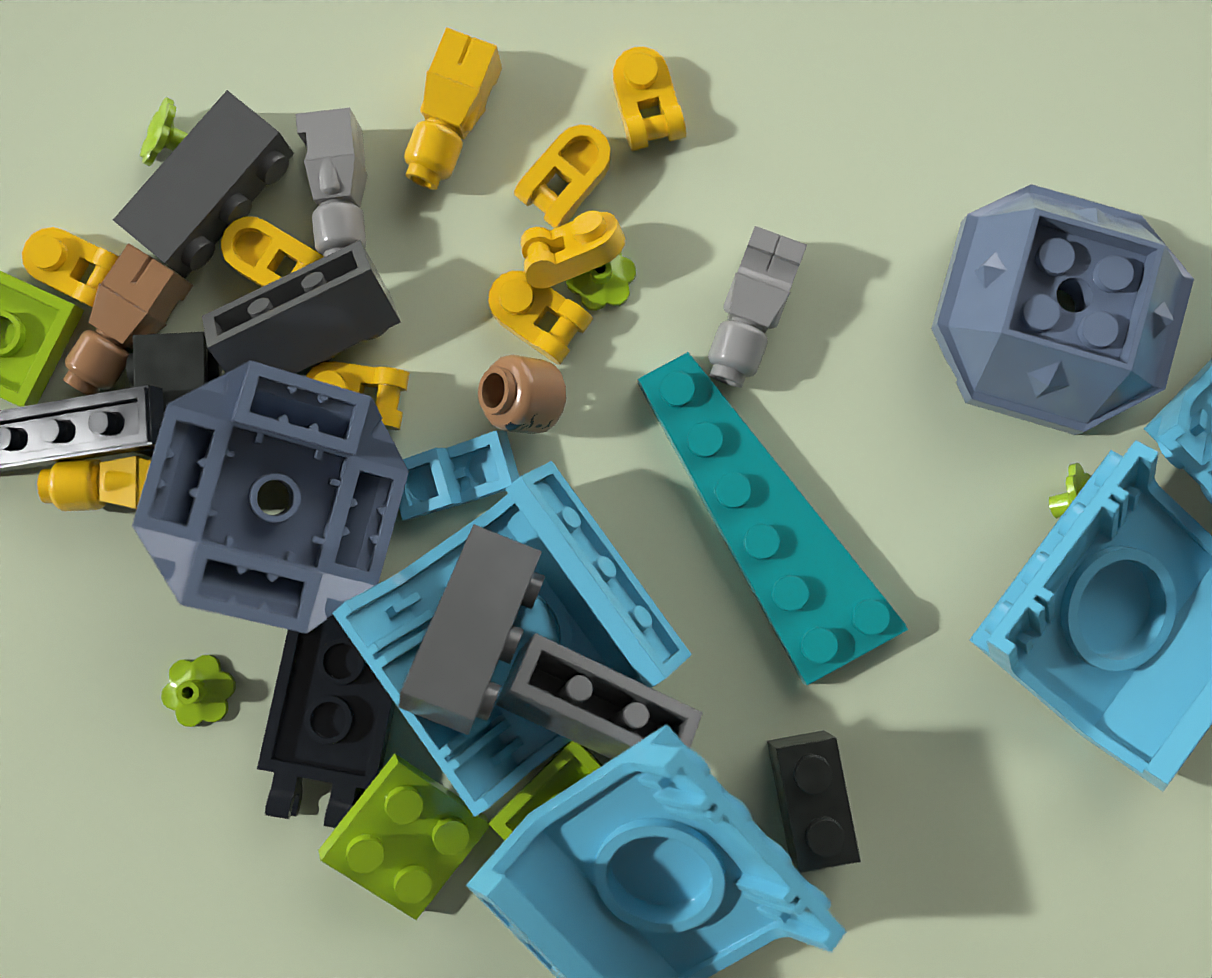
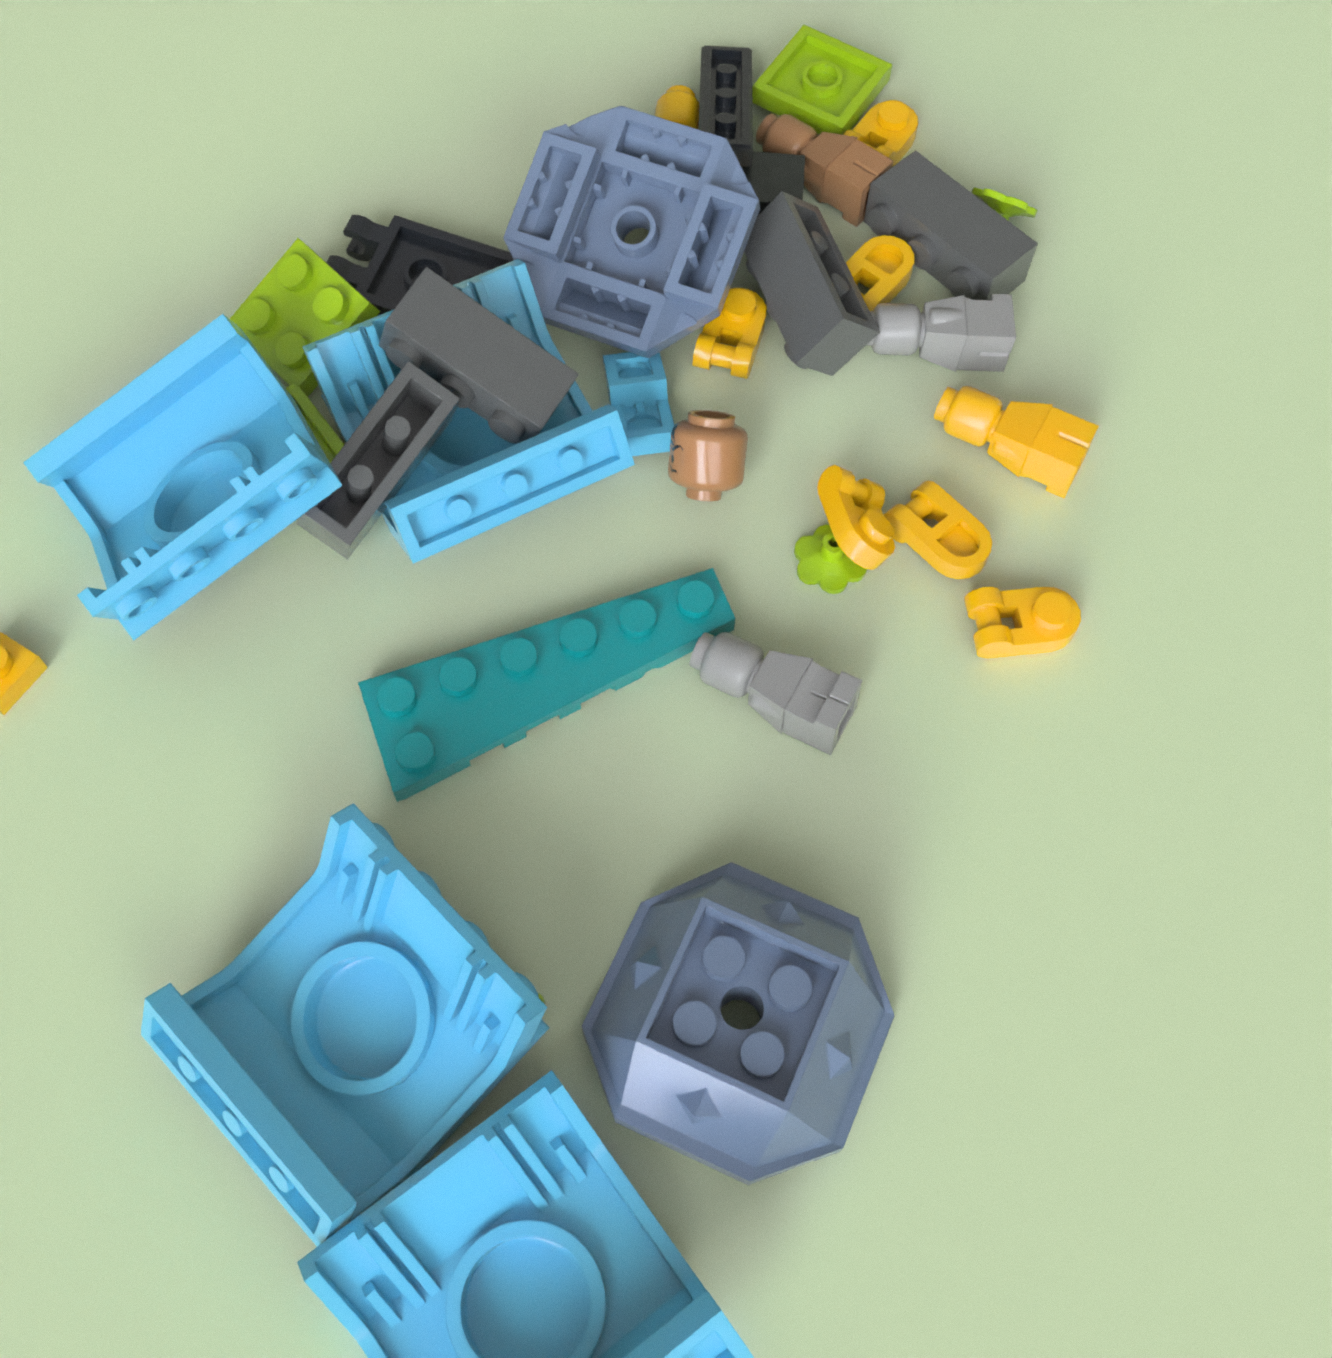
camera: 90 degrees right, 20 degrees down
(209, 686) = (477, 195): lime plant -> none
(522, 307) = (797, 481): yellow plate -> none
(813, 801) = (237, 662): pearl dark grey brick -> none

